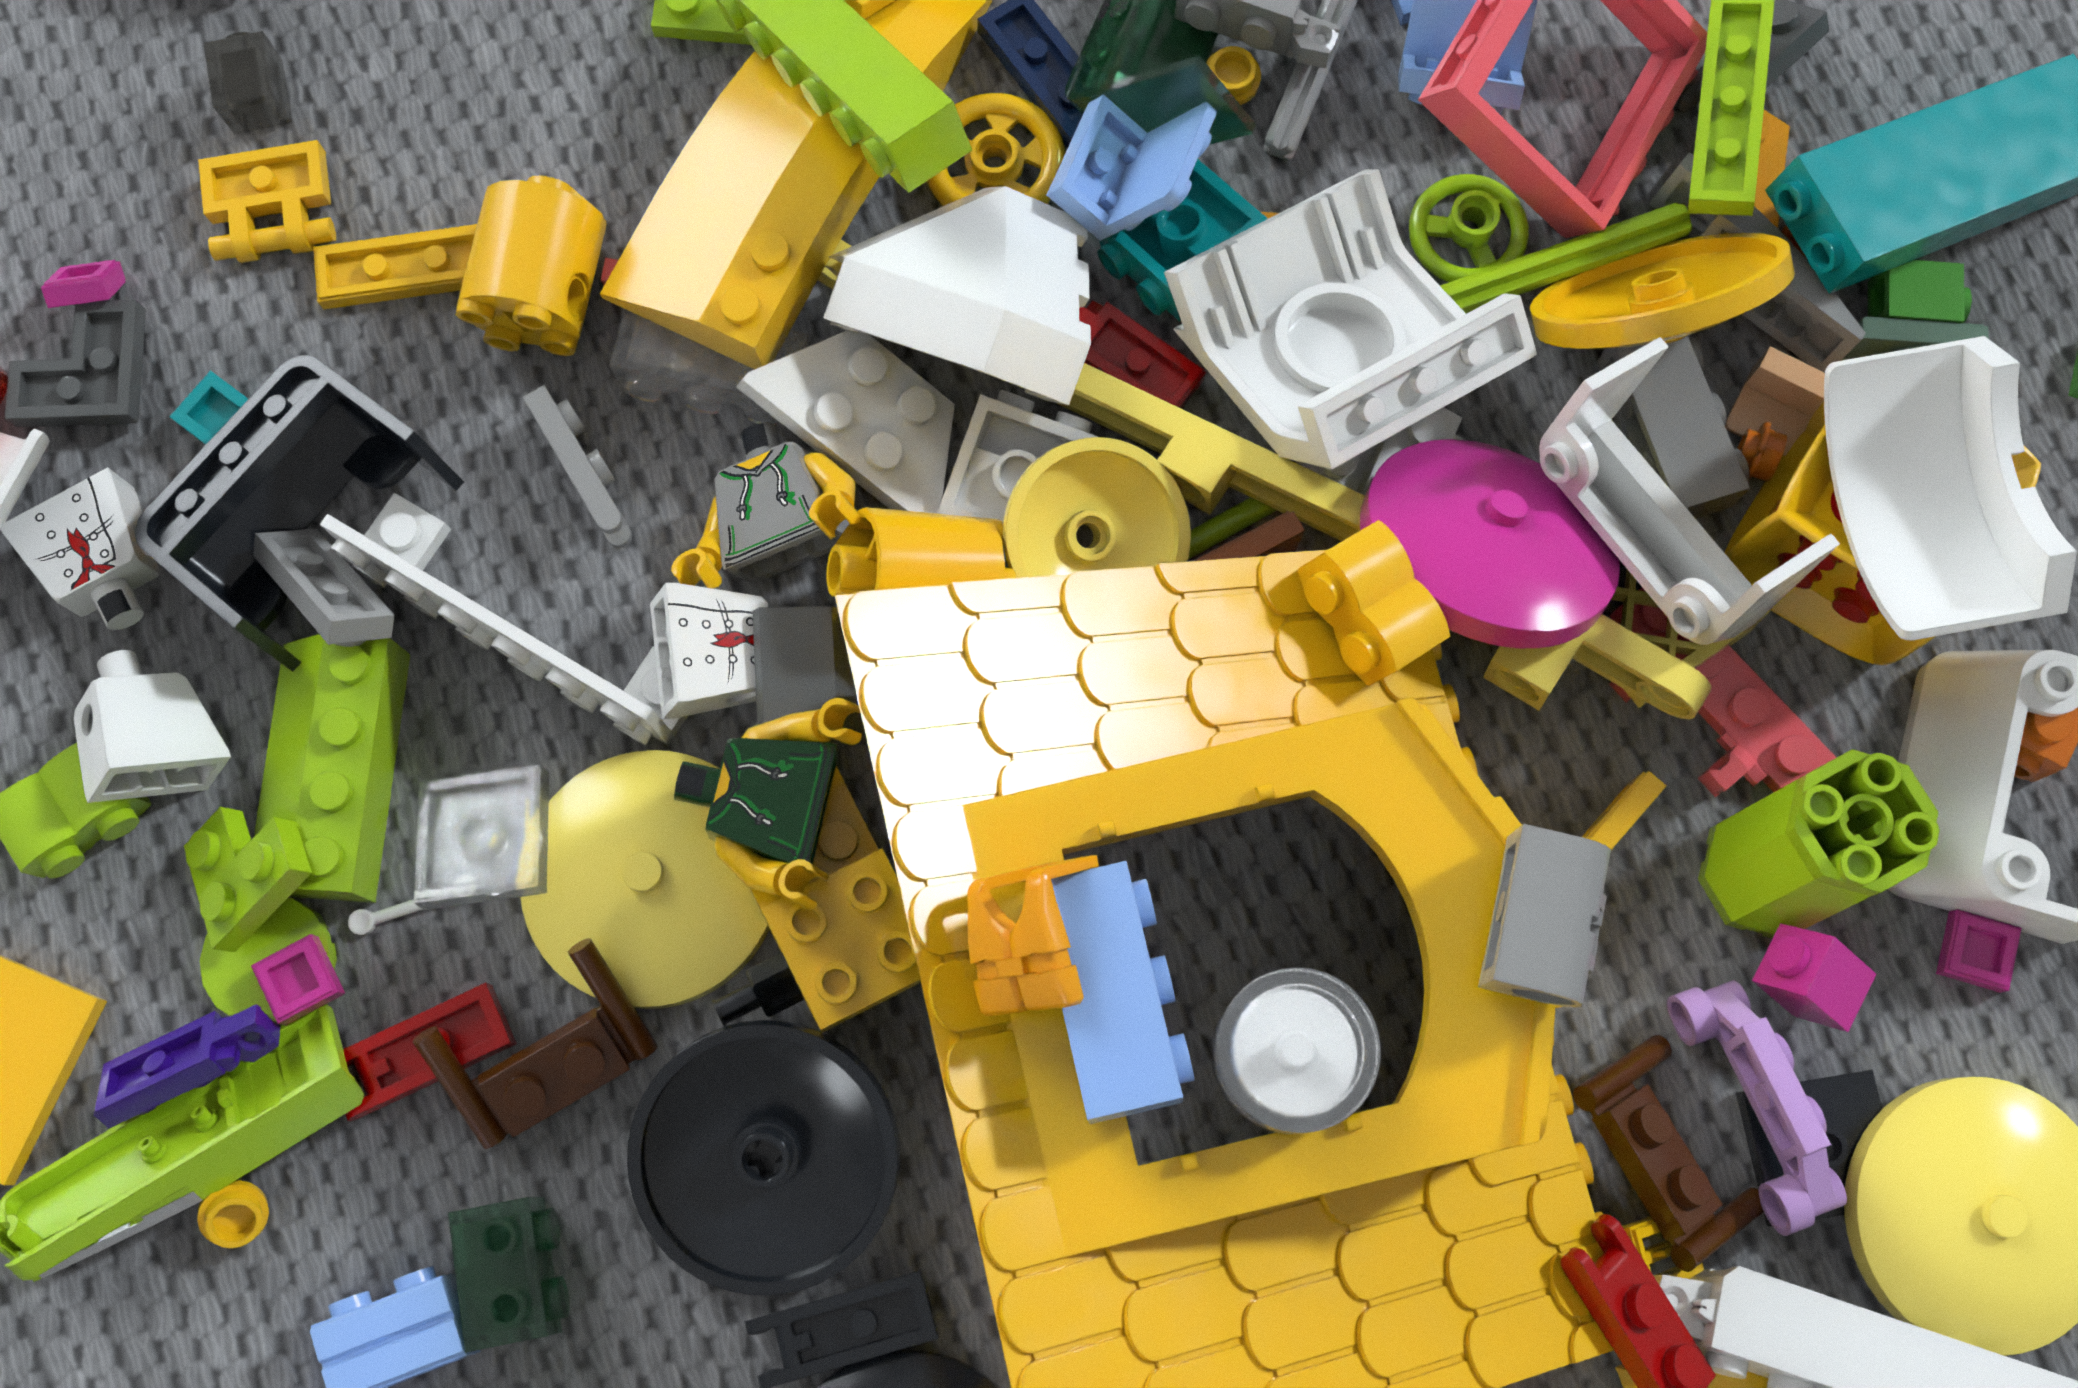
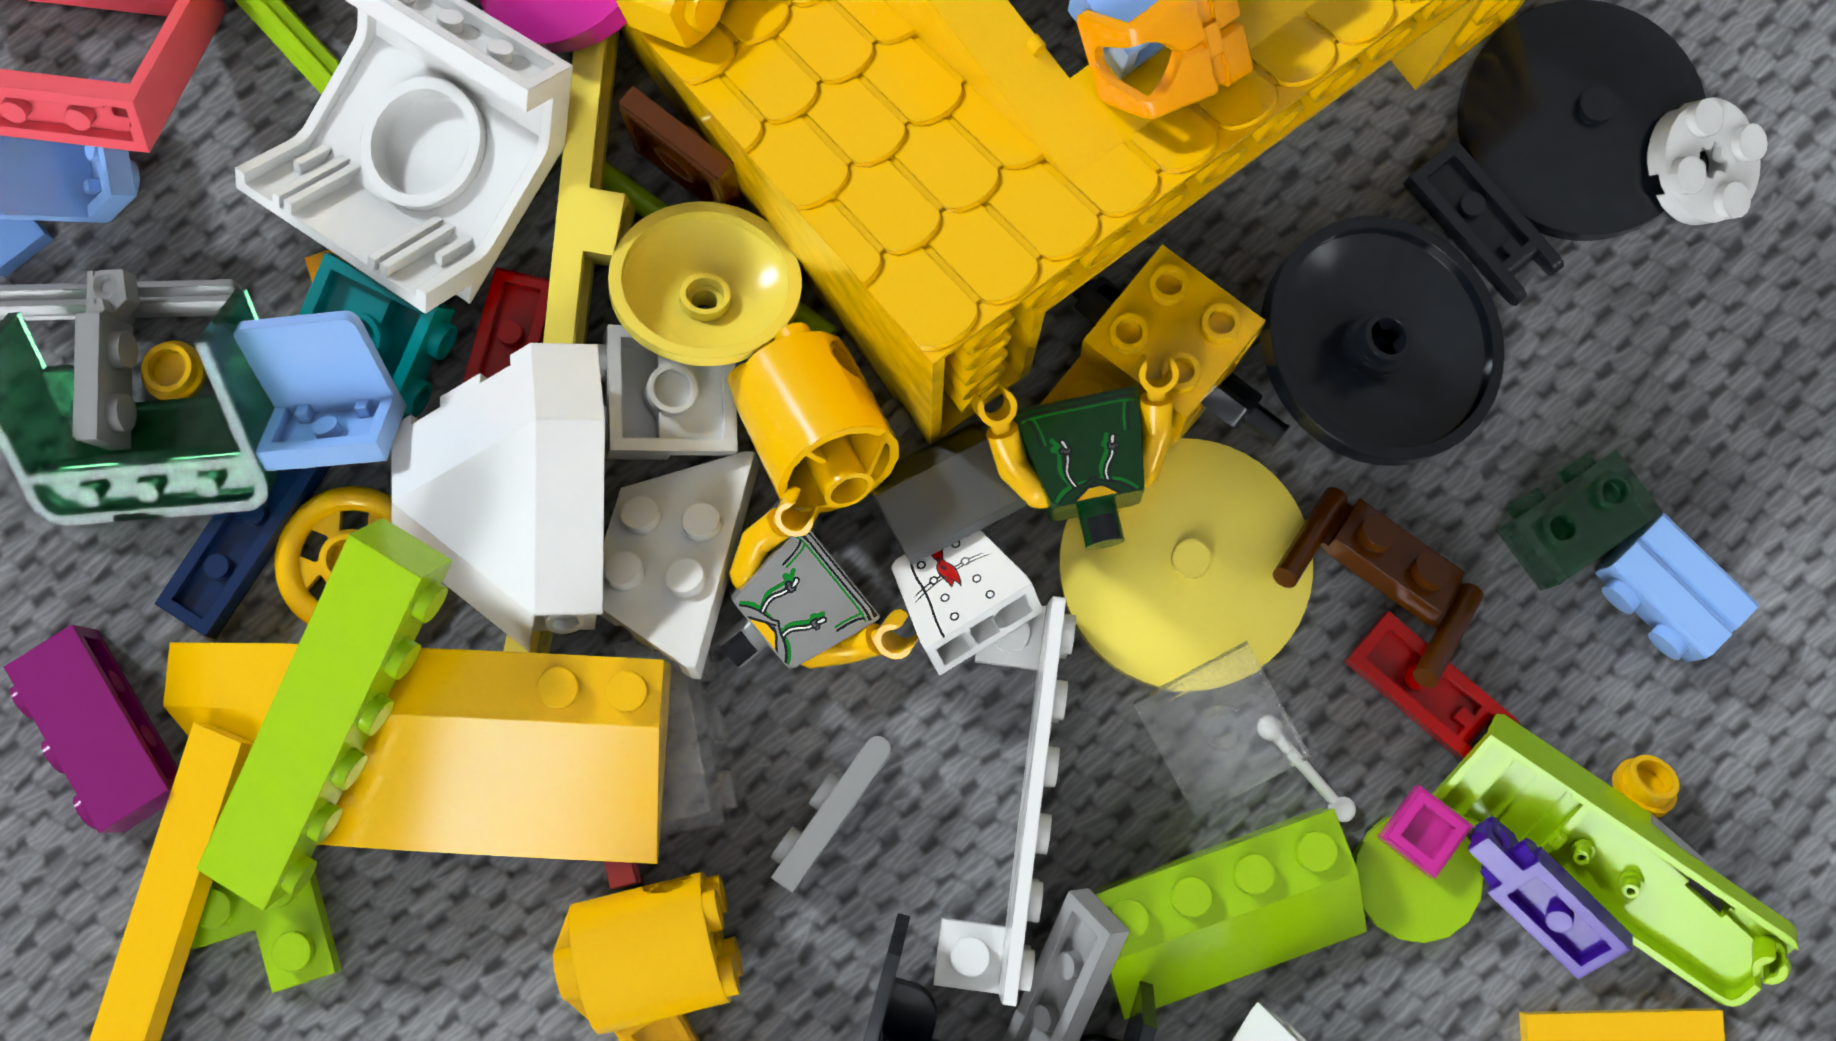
camera: 115 degrees left, 5 degrees up
(243, 878) = (1373, 926): lime plate -> none
(1477, 204) = (228, 74): lime piece -> none

